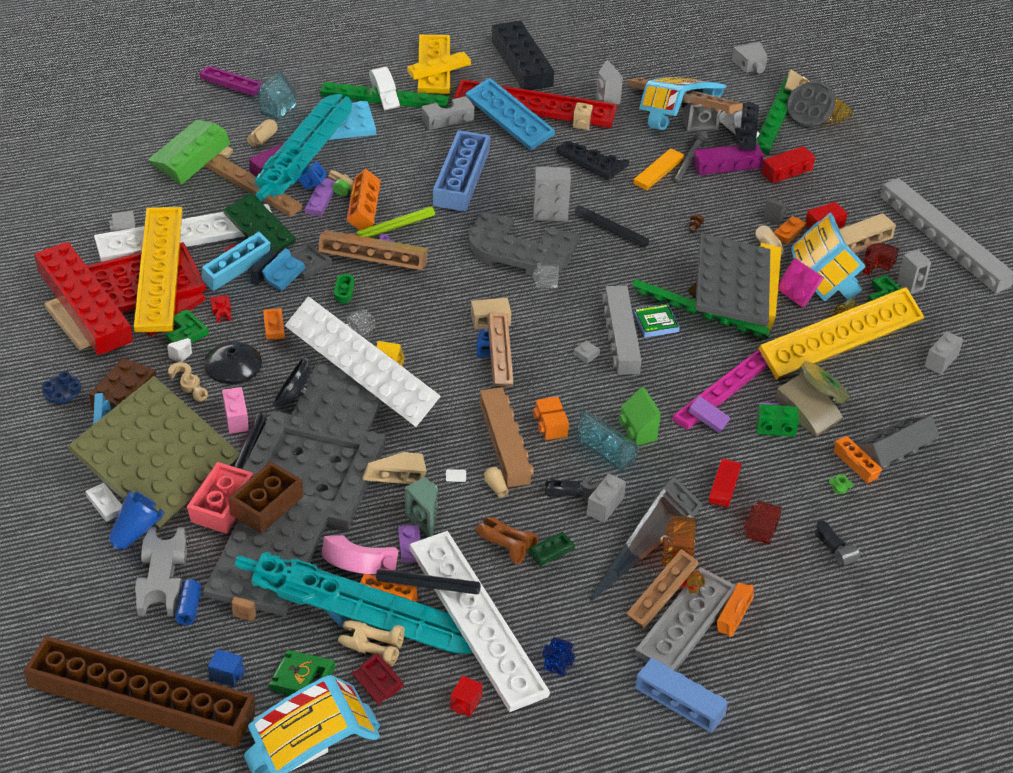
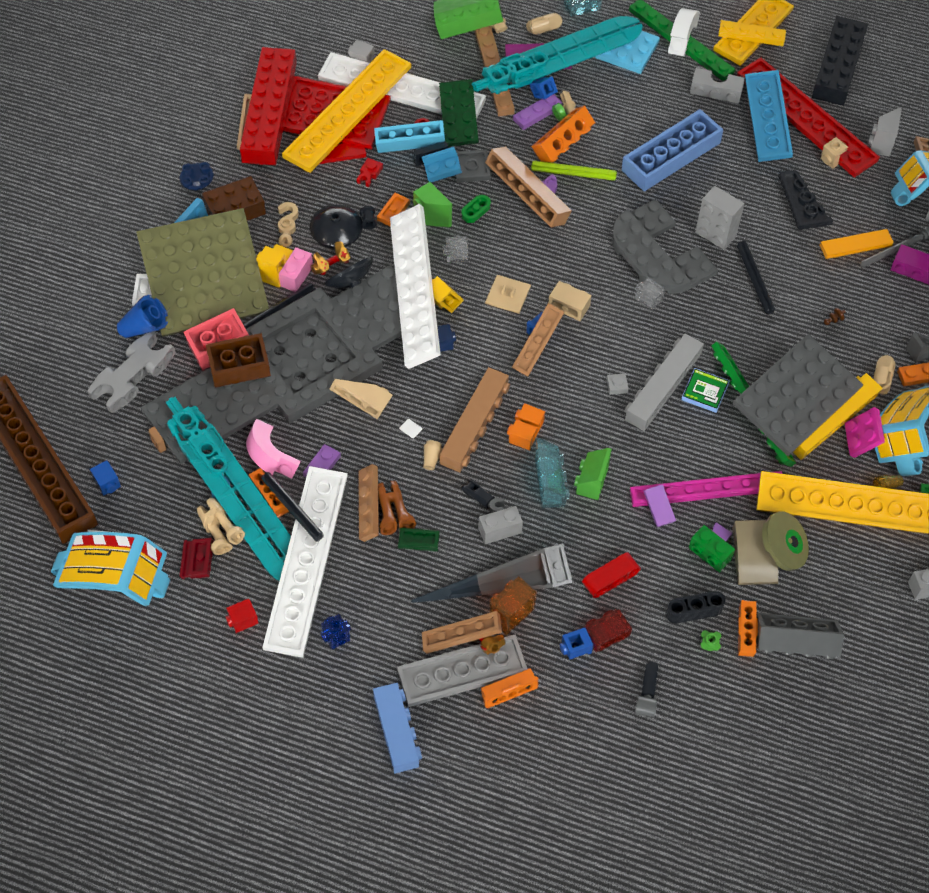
camera: 40 degrees right, 15 degrees up
(180, 350) = (304, 192): white slope -> none
(188, 327) = (327, 180): green plate -> none
(188, 602) = (126, 409): blue axle -> none
(214, 413) = (271, 262): none -> yellow brick
(254, 395) = (321, 265): none -> pearl gold piece
(257, 340) = (368, 218): none -> black bush
(298, 671) = (149, 514): green container -> none
(317, 291) = (436, 206): none -> bright green slope
(422, 505) = (352, 440): sand green slope -> none
(433, 336) = (508, 294): none -> tan piece
(482, 546) = (368, 503): none -> medium nougat plate
(750, 549) = (578, 638): none -> blue brick
(807, 466) = (703, 601): none -> black beam

